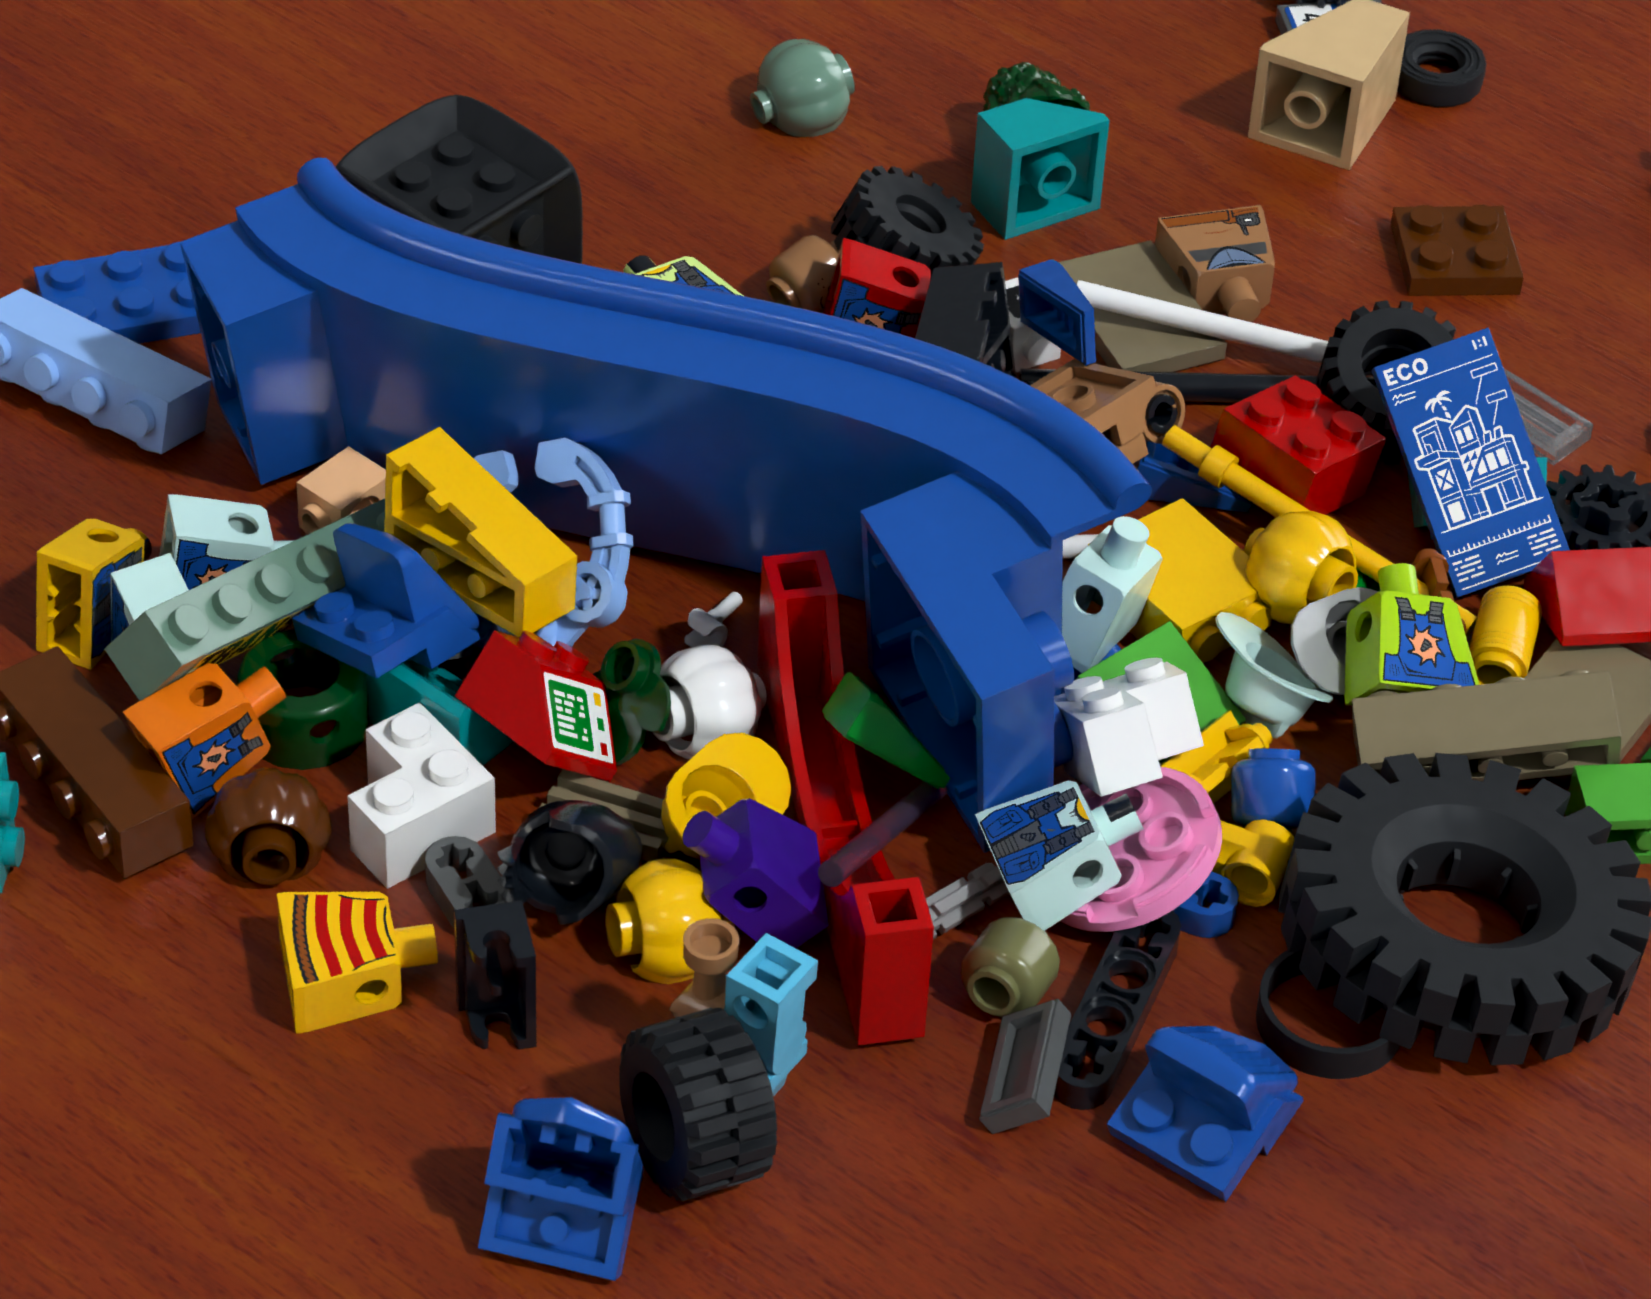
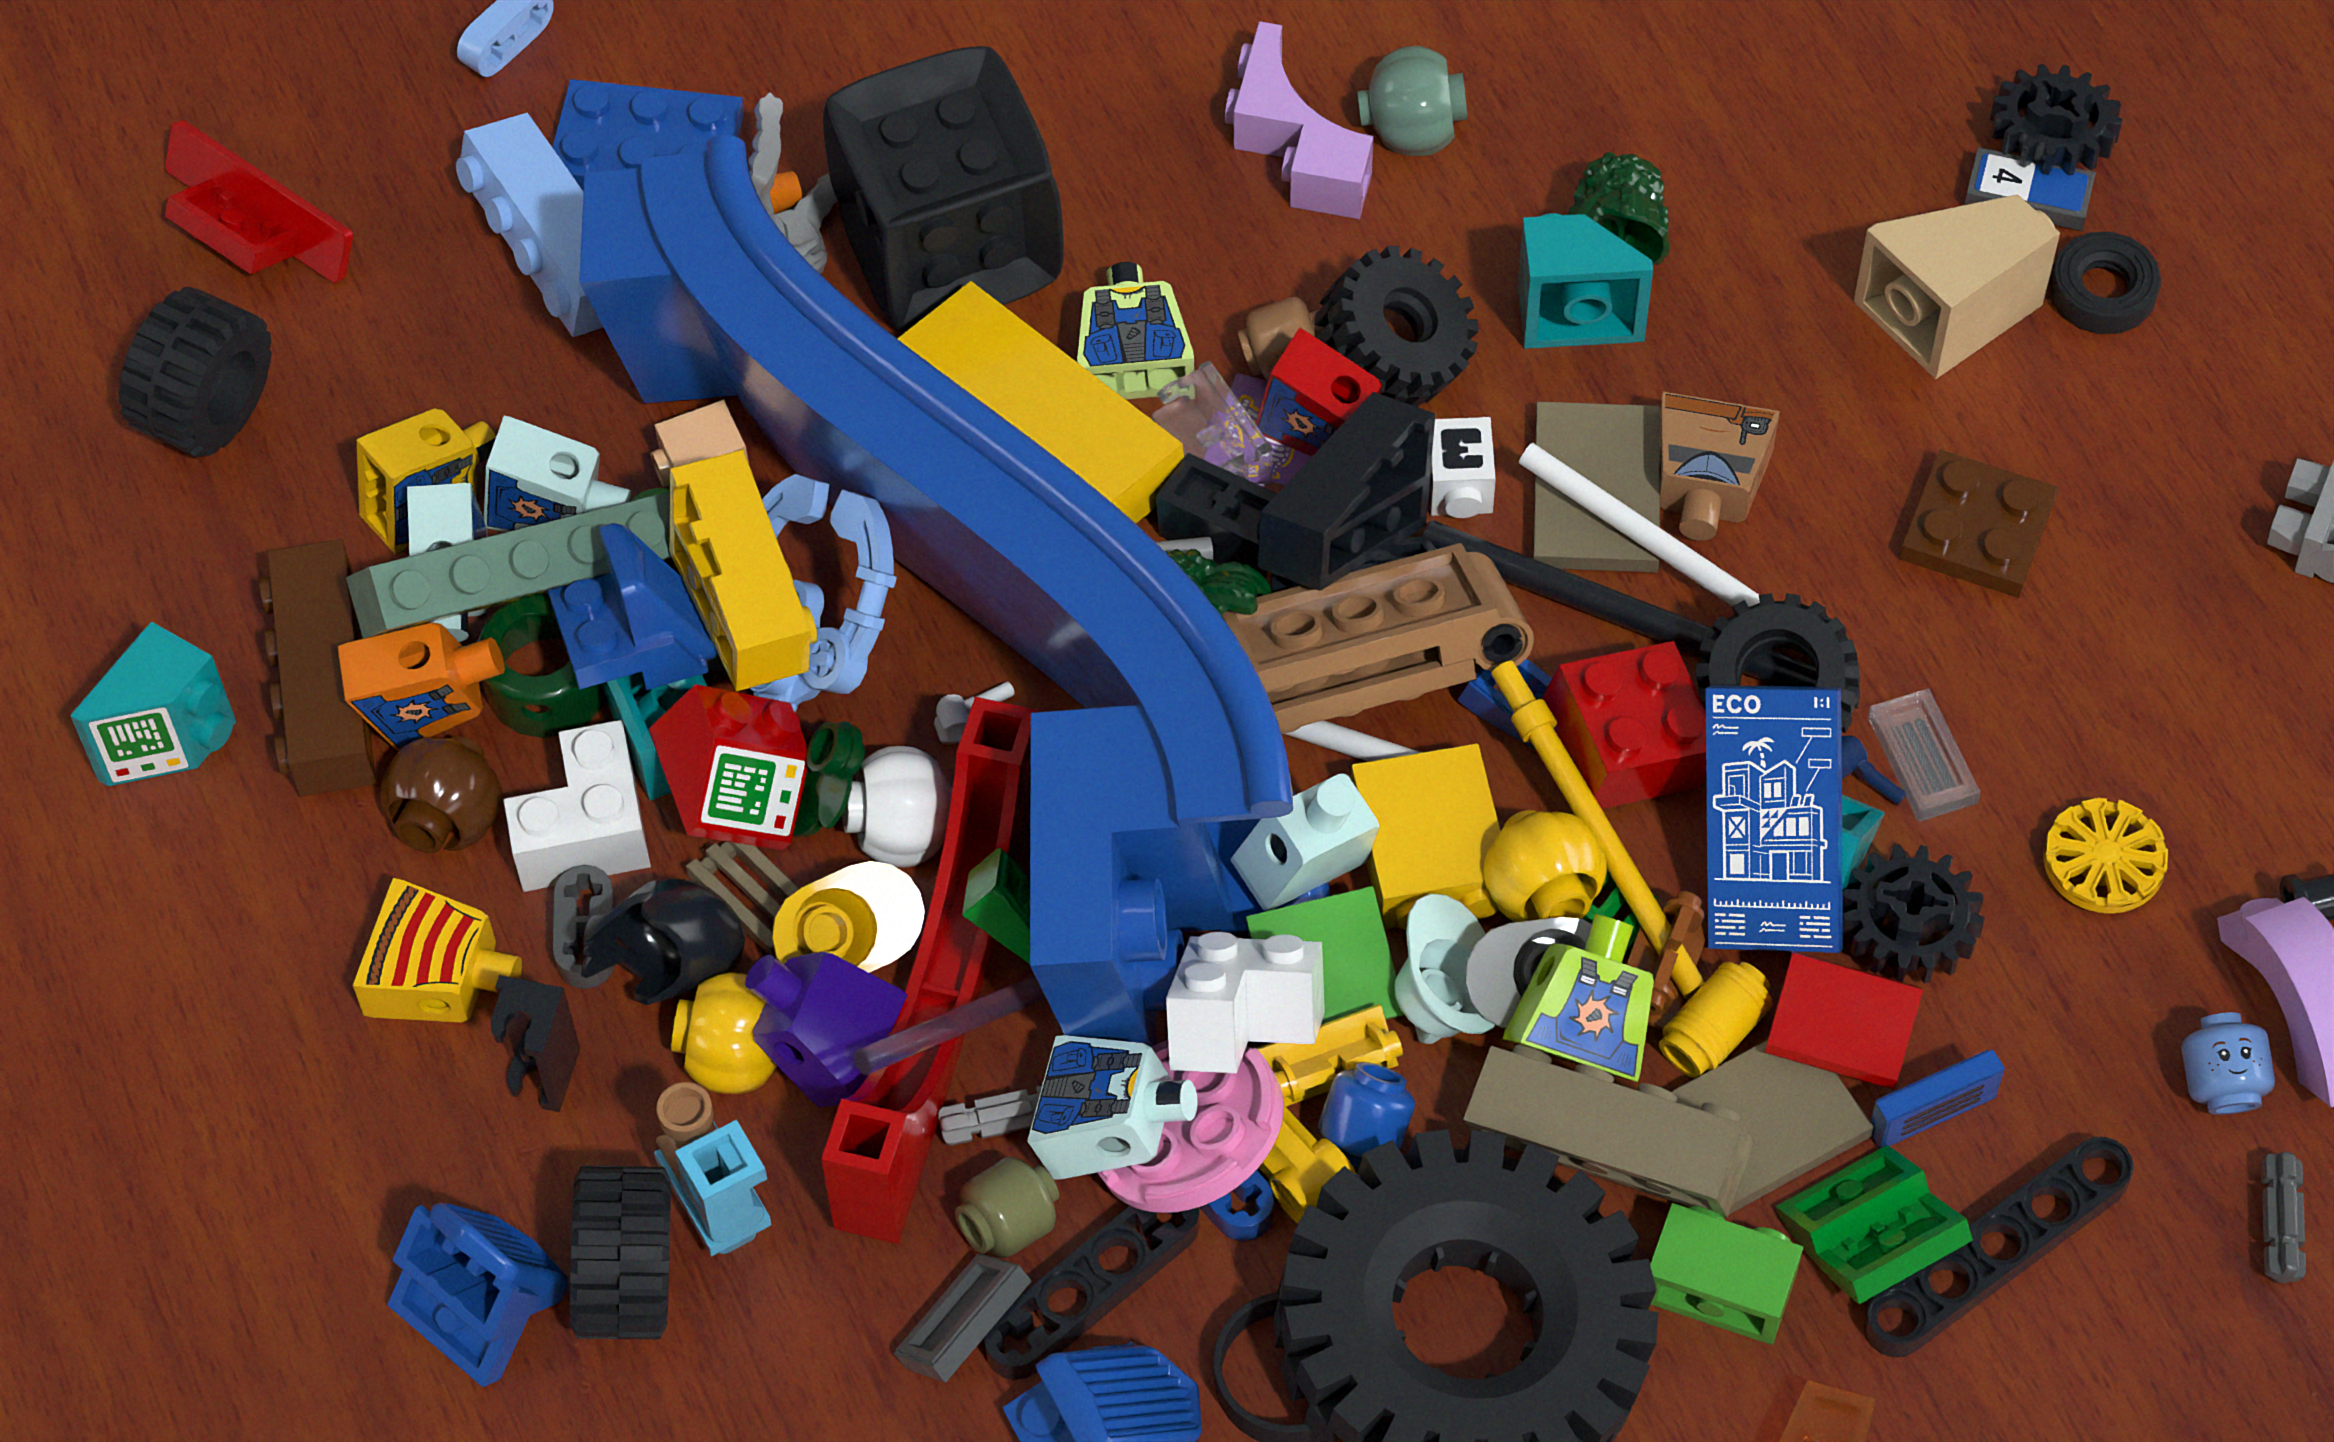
camera: 30 degrees right, 15 degrees up
(688, 130) = (1322, 160): none -> lavender arch
(1057, 309) = (1468, 481): blue slope -> none

